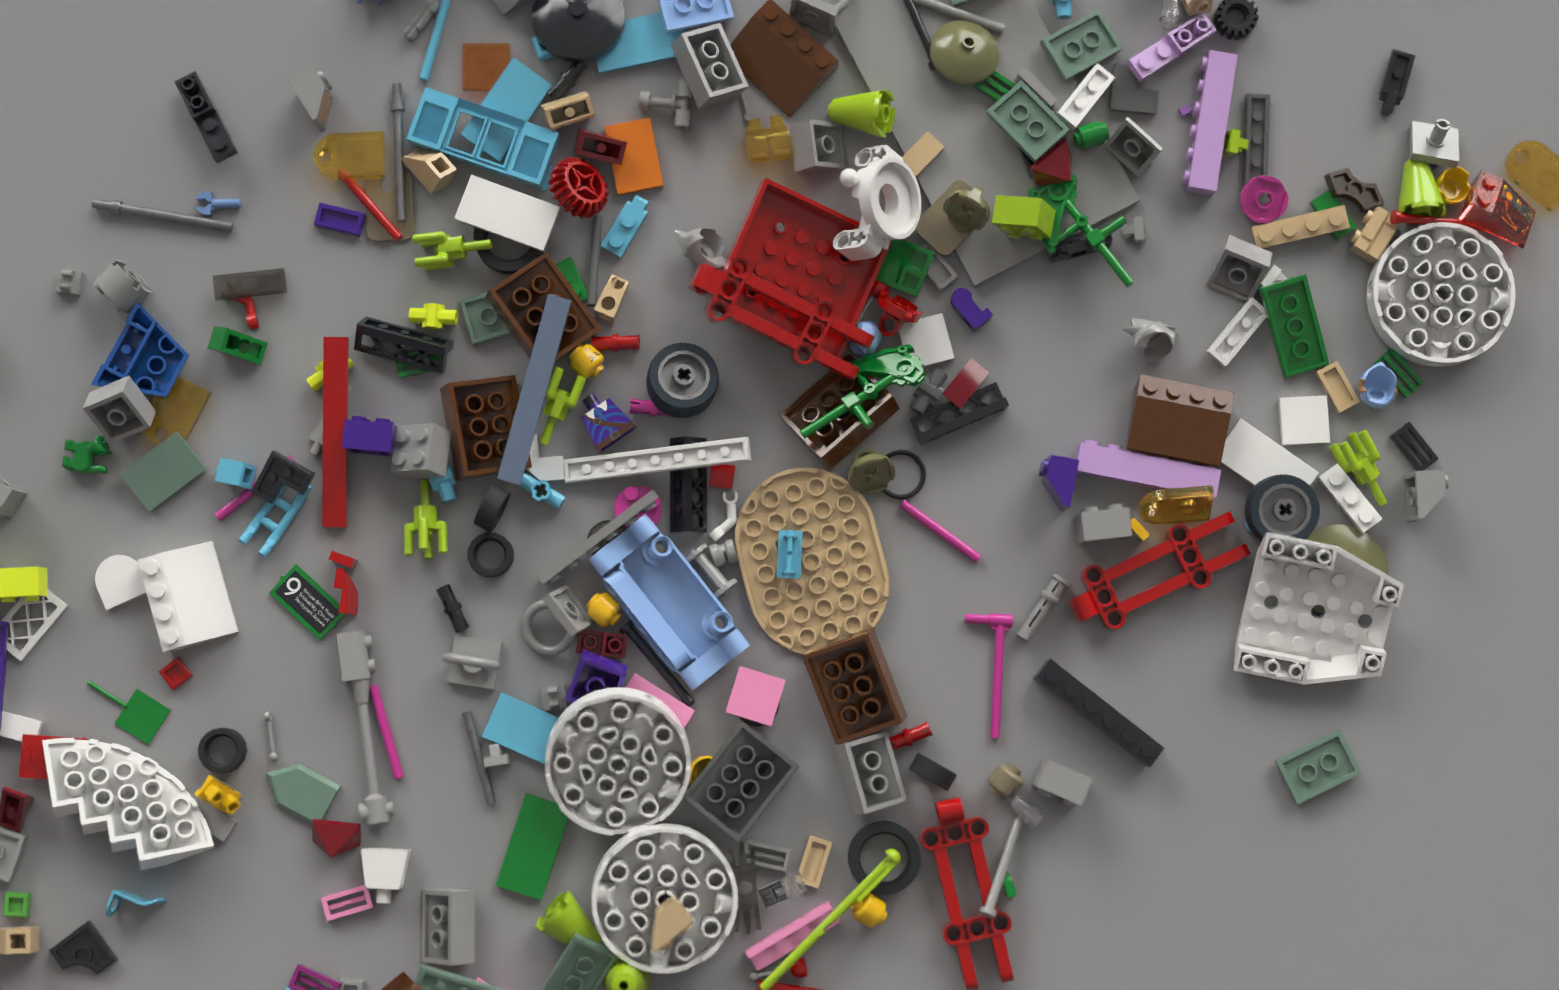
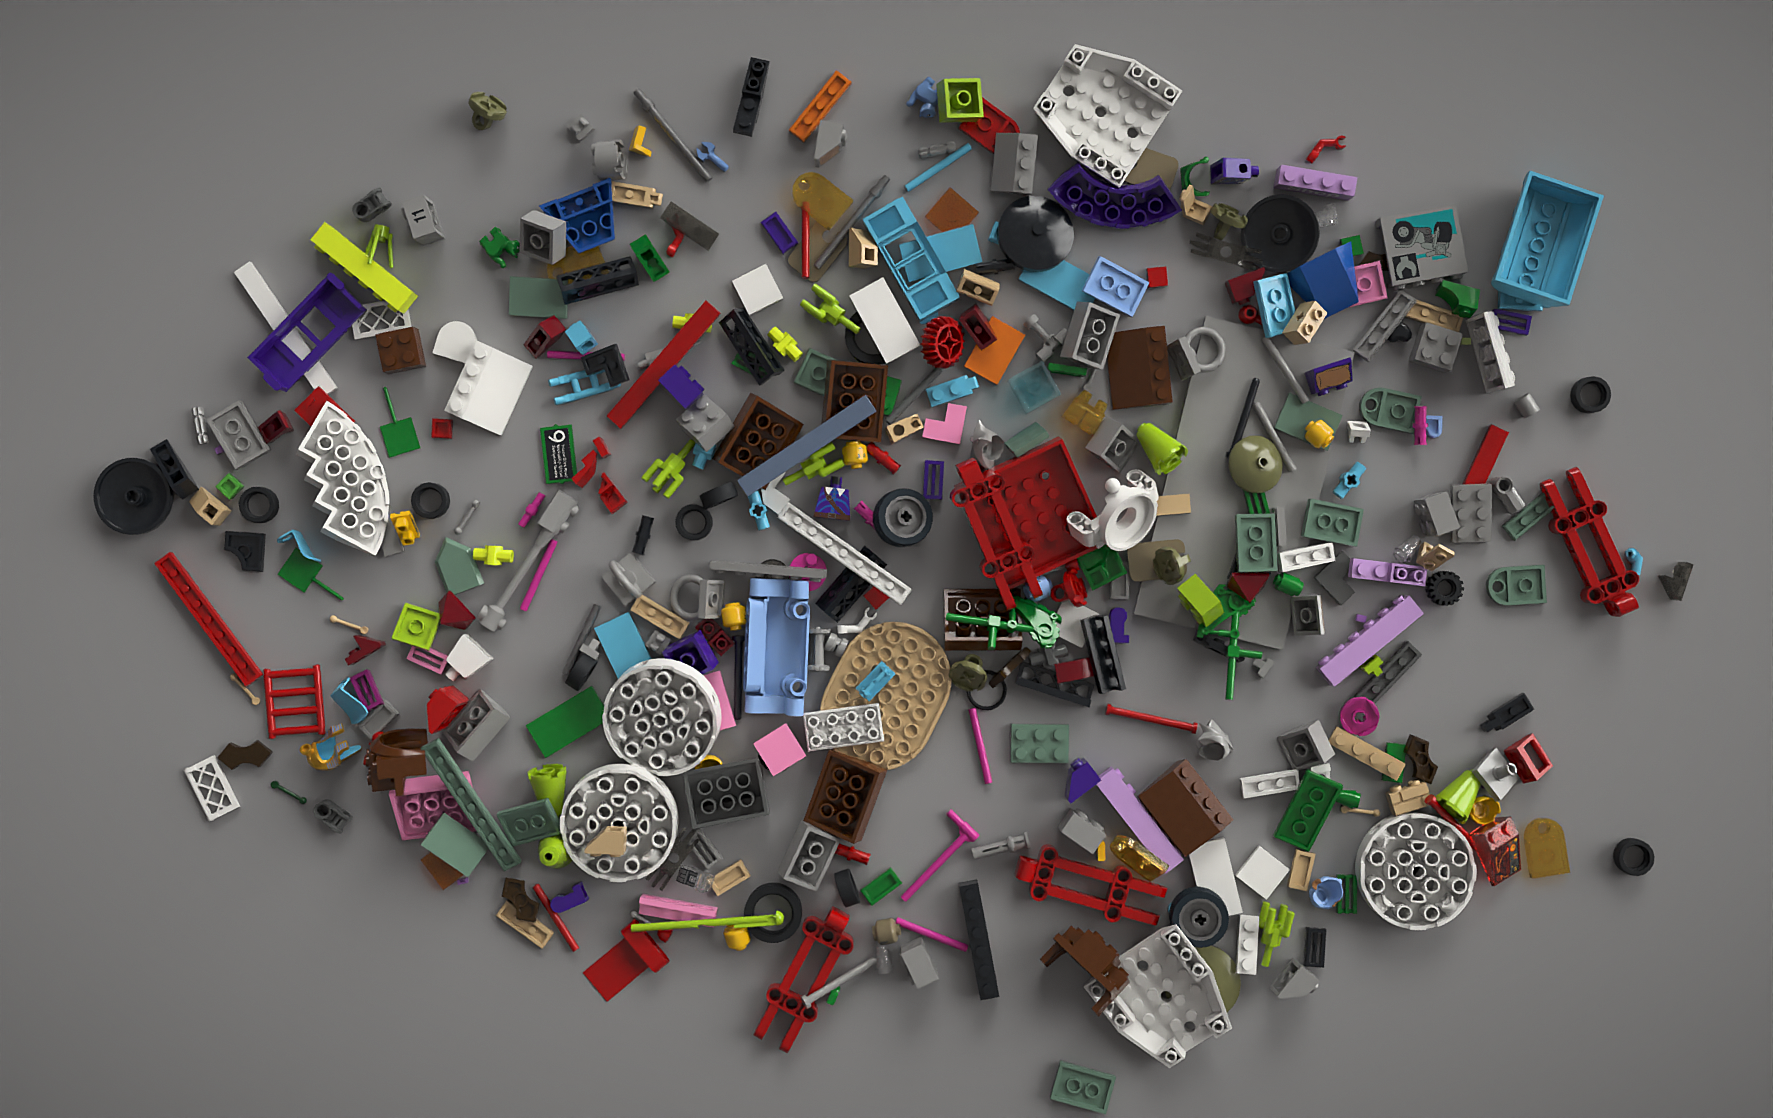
camera: 50 degrees right, 5 degrees up
(41, 895) = (244, 500): none -> black tyre
(73, 632) = (400, 350): none -> reddish brown brick
(133, 248) = (637, 140): none -> yellow tile
(155, 925) = (302, 571): none -> green piece
(175, 299) = (635, 195): none -> tan hinge
(200, 502) = (544, 336): none -> dark red slope
(209, 408) = (599, 283): none -> black fence
(263, 929) = (363, 630): none -> tan hinge
(278, 73) = (820, 106): none -> orange tile
(281, 942) = (367, 646): none -> dark red slope
(311, 881) = (416, 627): none -> lime plate
(326, 676) = (531, 509): none -> dark pink bar
(326, 750) = (493, 555): none -> neon yellow axle
(364, 288) = (757, 289): none -> white tile
(390, 597) = (610, 494): none -> red slope
(403, 933) = (444, 707): none -> red slope
(504, 787) = (581, 672): none -> black tyre
(535, 670) = (660, 616): none -> tan plate
(655, 265) = (947, 431): none -> bright pink tile
(693, 338) = (933, 463): none -> dark purple tile
(699, 157) = (1034, 387): none -> clear light blue brick
(715, 116) = (1066, 370): none -> green tile
(734, 209) = (1026, 439): none -> sand green tile
(797, 623) = (843, 727): none -> white tile
(902, 434) = (1009, 667): none -> dark brown tile
(963, 744) = (881, 886): none -> green tile
(977, 347) = (1101, 654): none -> black fence
(993, 480) = (1039, 743): none -> sand green plate
(1051, 747) = (931, 934): none -> dark pink bar
(1075, 368) = (1151, 718): none -> red bar
(1219, 631) = (1095, 958): none -> reddish brown piece
(1322, 282) = (1349, 798): none -> green cone
(1326, 297) = (1344, 809): none -> tan hinge
(1458, 115) = (1525, 768): none -> red tile

